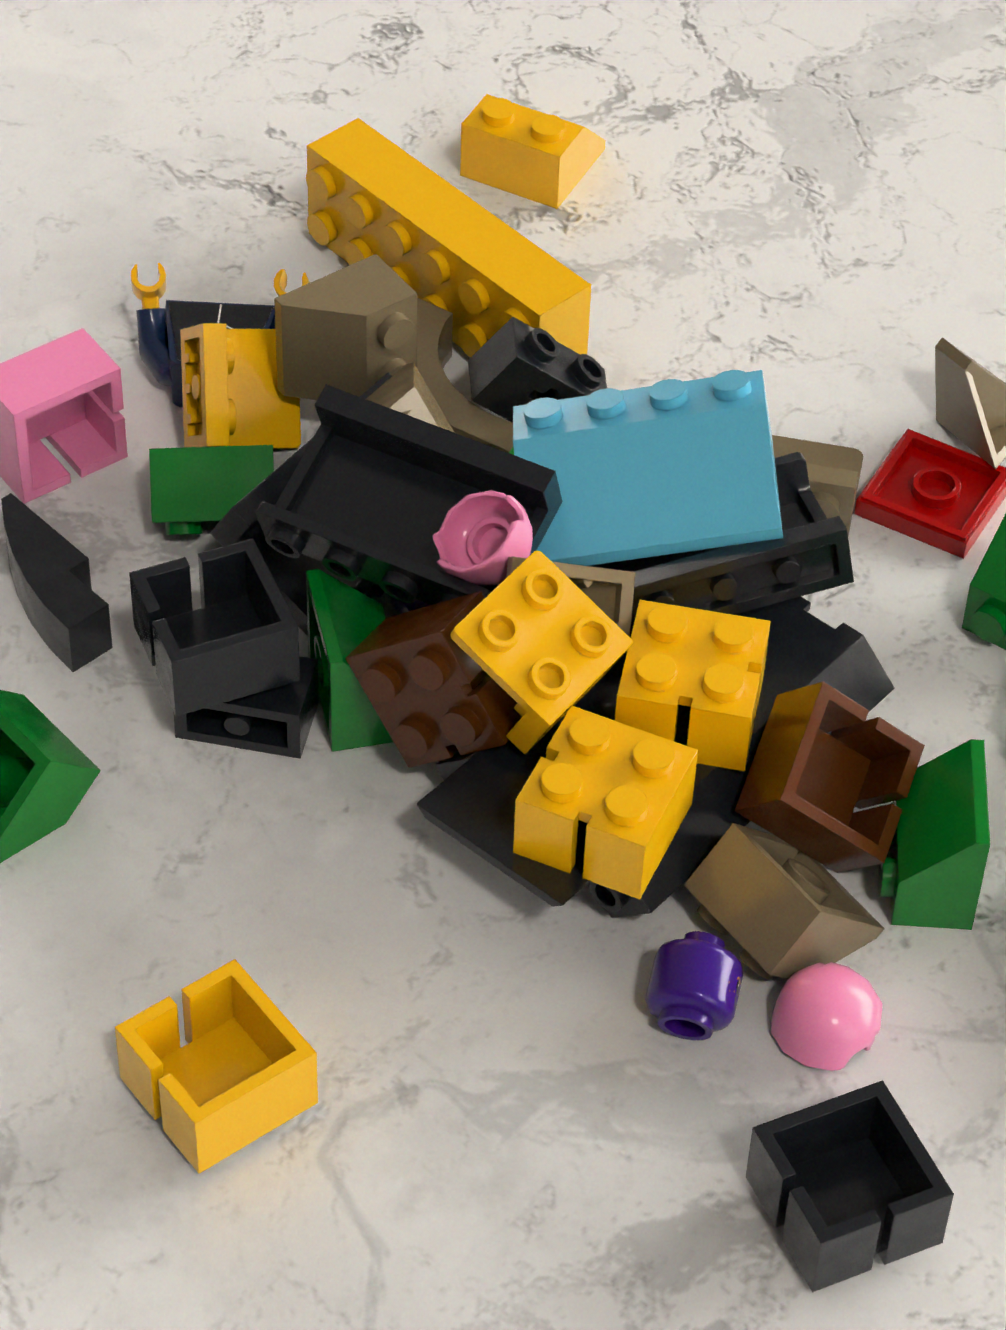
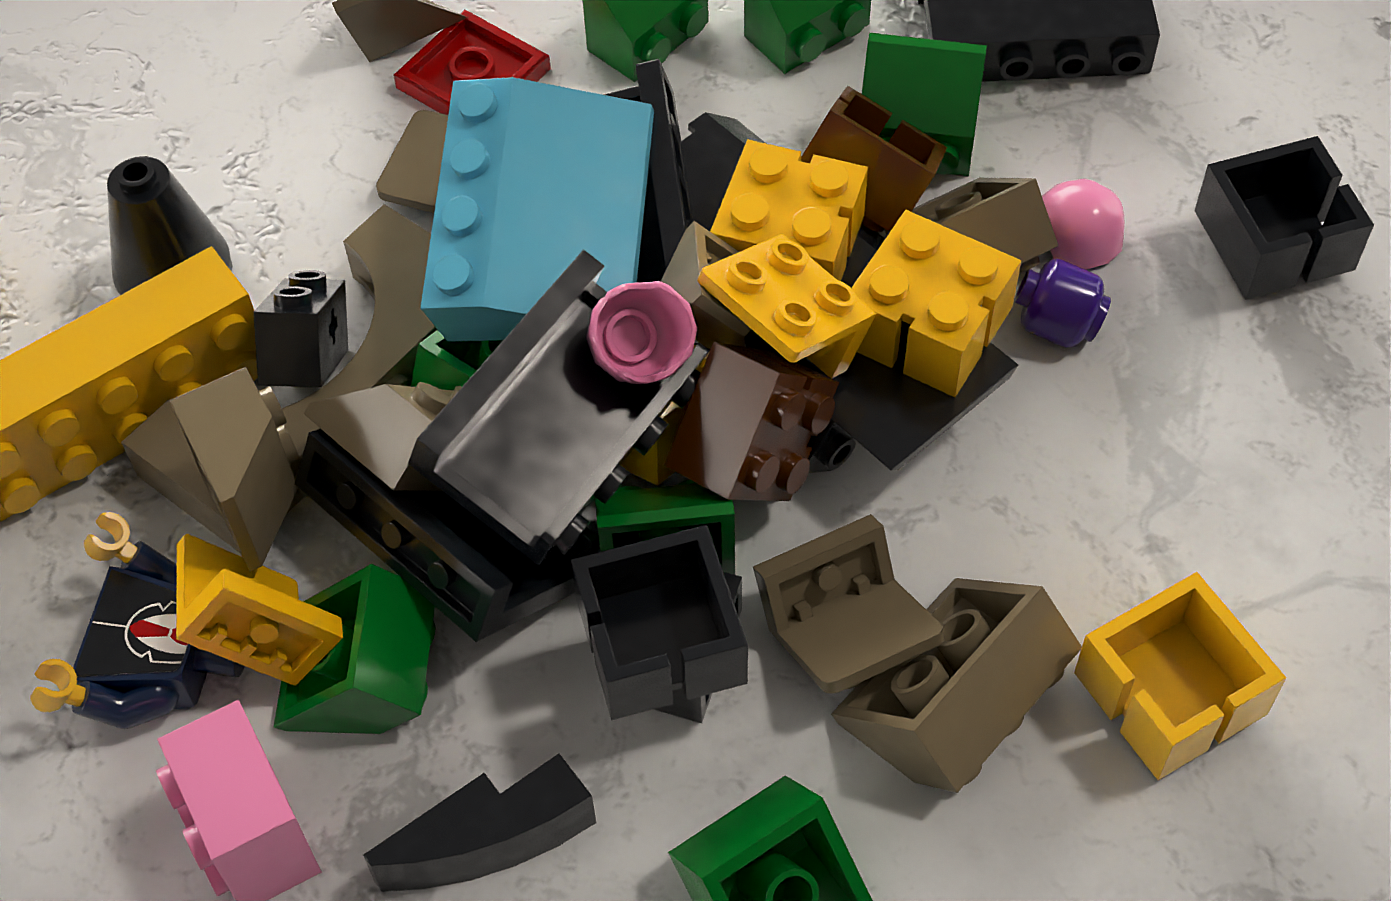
camera: 80 degrees left, 10 degrees up
(209, 903) = (961, 699): none -> dark tan slope
(289, 811) = (842, 608): none -> dark tan bracket
(640, 284) = (154, 223): none -> black cone

